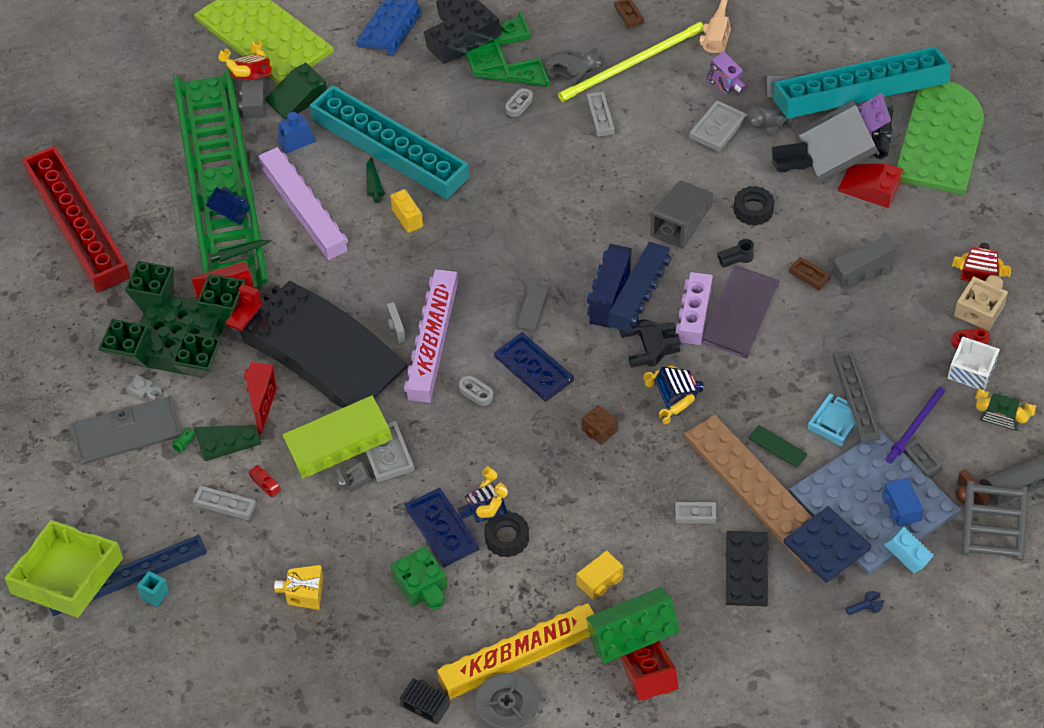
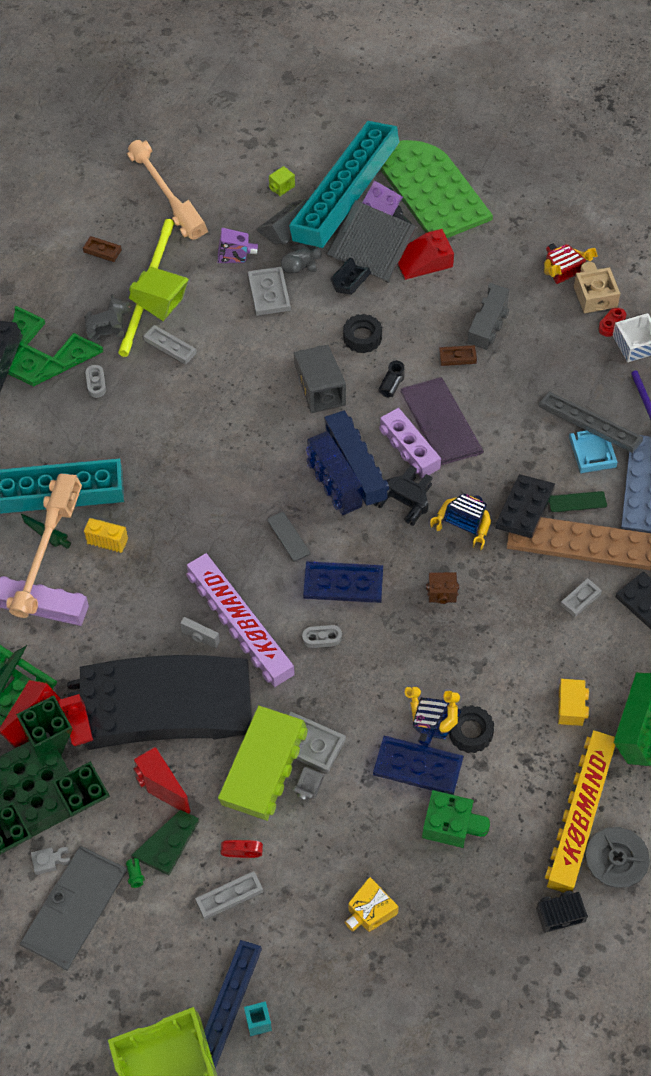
camera: 45 degrees left, 5 degrees up
(392, 163) = (60, 504): none -> light nougat bar
(629, 69) = (158, 291): none -> lime slope
(728, 416) = (525, 506): none -> black plate
(821, 52) = (281, 181): none -> lime brick

